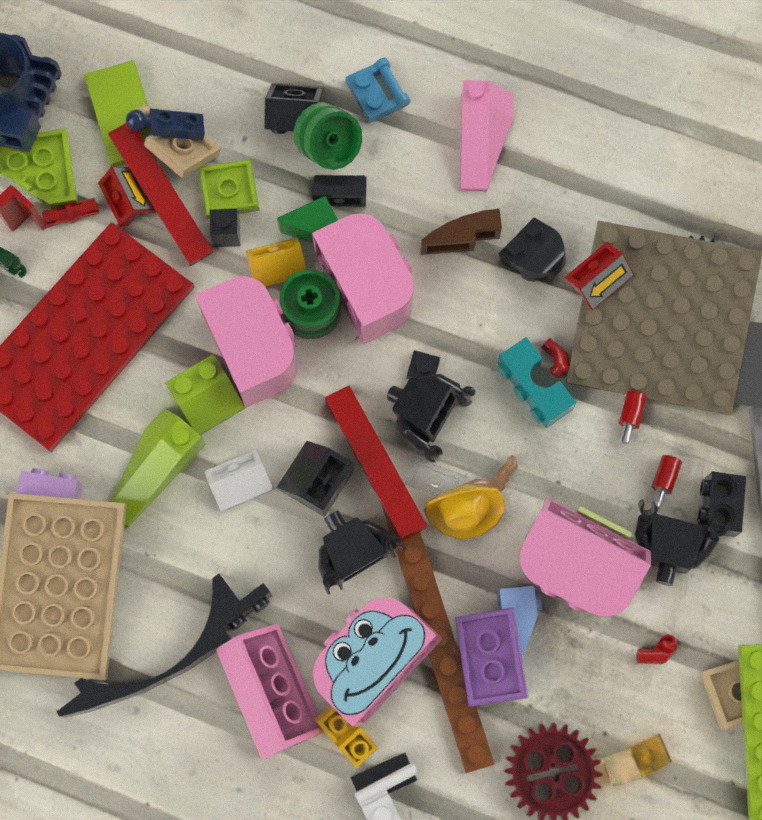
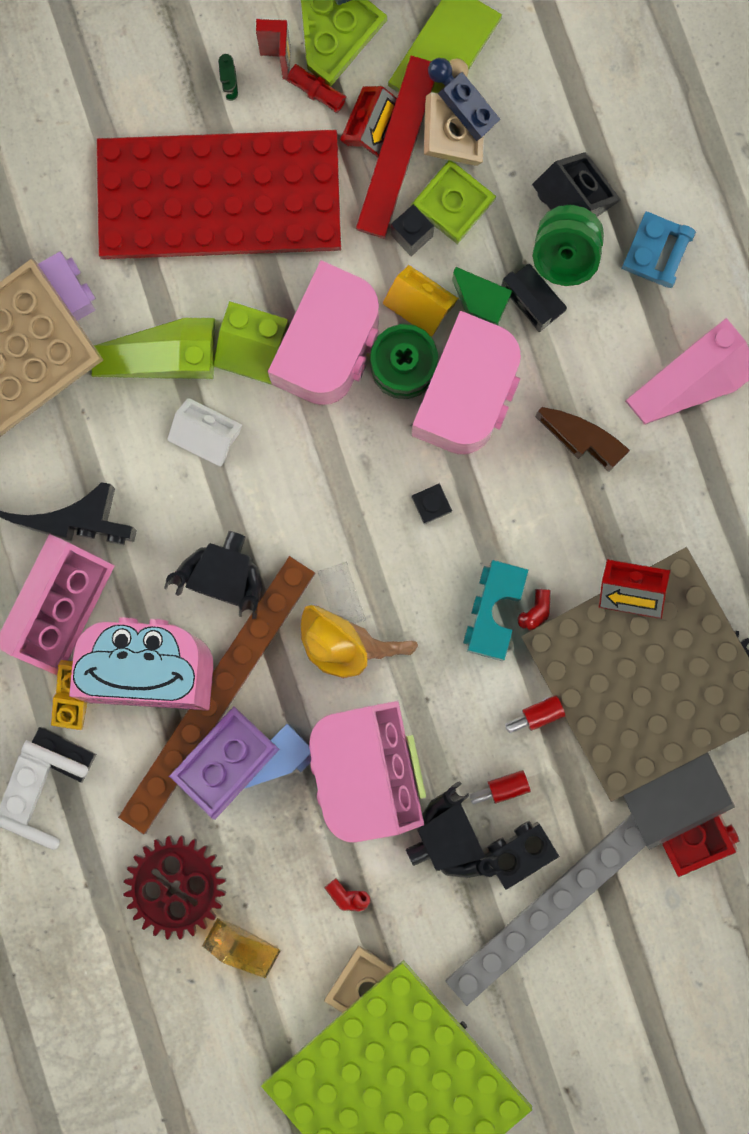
camera: 55 degrees right, 10 degrees up
(316, 477) = (257, 494): black slope -> none
(376, 463) = (311, 533): red tile -> none
(425, 408) = (393, 535): black torso -> none
(535, 251) = (620, 514): black slope -> none

